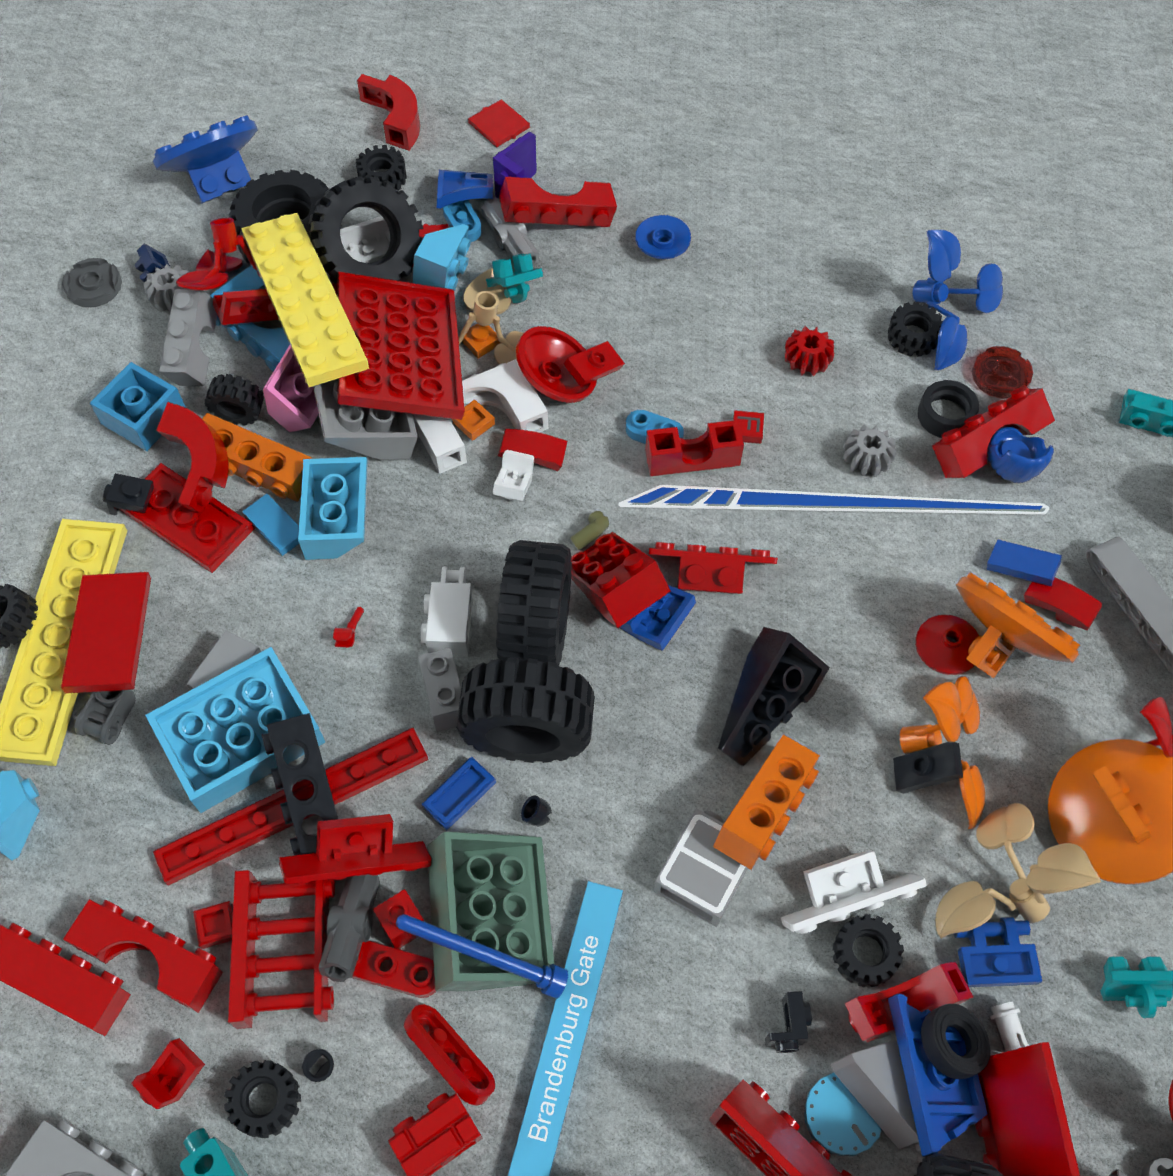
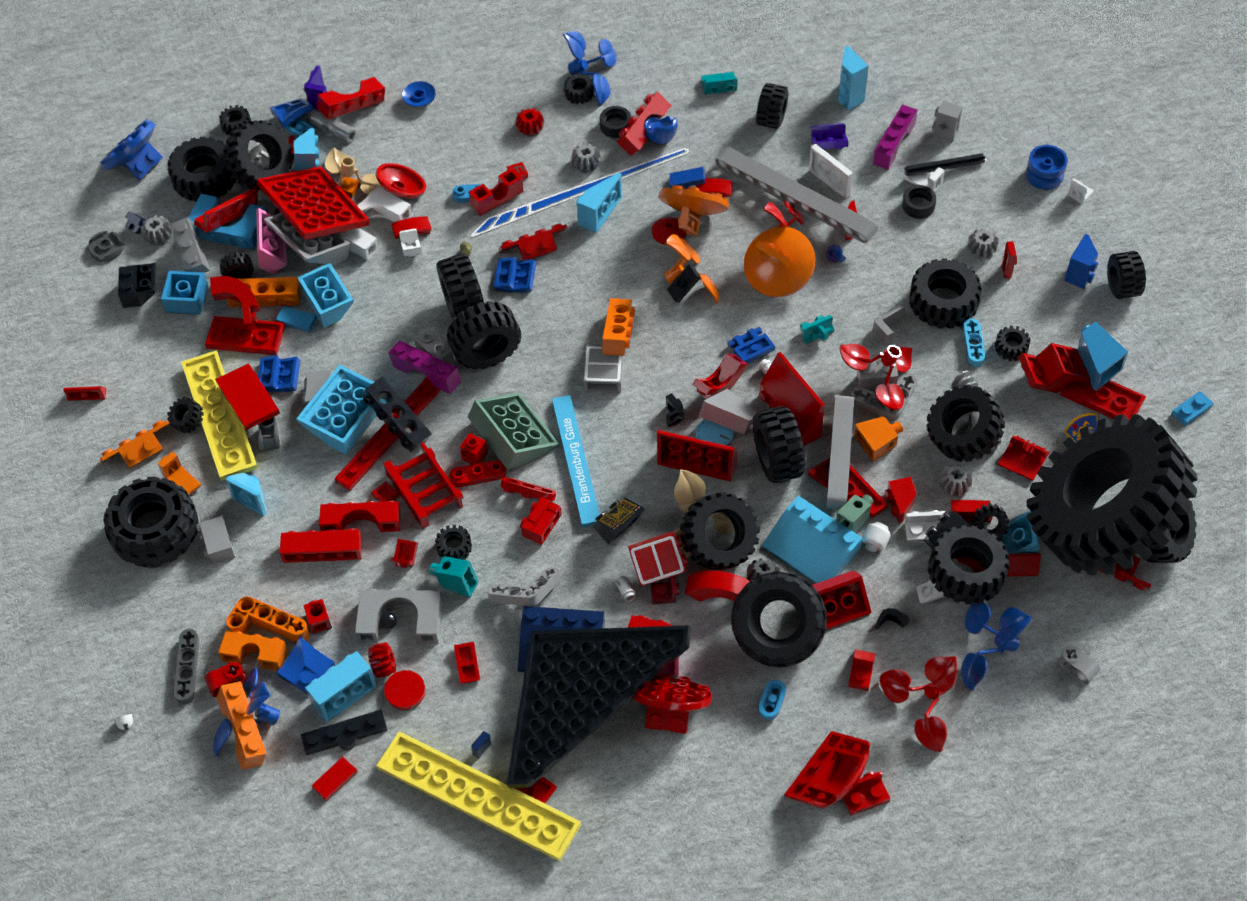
camera: 25 degrees left, 5 degrees down
(80, 360) = (136, 284): none -> black slope
(127, 494) = (208, 335): black bracket -> none
(190, 609) = (279, 374): none -> blue slope
(211, 265) = (181, 209): red plant -> none
(304, 300) = (250, 197): light yellow plate -> none
(324, 1071) = (475, 520): black hinge -> none
(346, 636) = (367, 352): red hand -> none
(348, 927) = (451, 459): dark grey piece -> none
(354, 849) = (435, 426): red bracket -> none
(395, 96) = (222, 79): red arch -> none
(409, 715) = (442, 374): none -> magenta arch
(448, 613) = (415, 317): white brick -> none
(458, 793) = (468, 392): blue tile -> none
(475, 420) = (374, 226): orange plate -> none
(499, 123) = (285, 69): red piece -> none
(514, 280) = (349, 145): teal hips -> none
(536, 811) = (510, 382): black hinge -> none
(550, 978) = (557, 441): blue piece -> none
(594, 363) = (419, 172): red plate -> none
(618, 578) = (495, 265): red slope -> none
(771, 685) = (593, 280): black wedge -> none
(847, 887) = (670, 347): white bracket -> none
(850, 543) = (599, 202): none -> medium azure slope
(886, 939) = (693, 360): black tyre -> none
(939, 1103) = (743, 393): blue wing -> none
(940, 1052) = (743, 384): black tyre -> none
(1001, 371) = (633, 92): clear red tile -> none
(1058, 870) = (752, 315): tan plant -> none

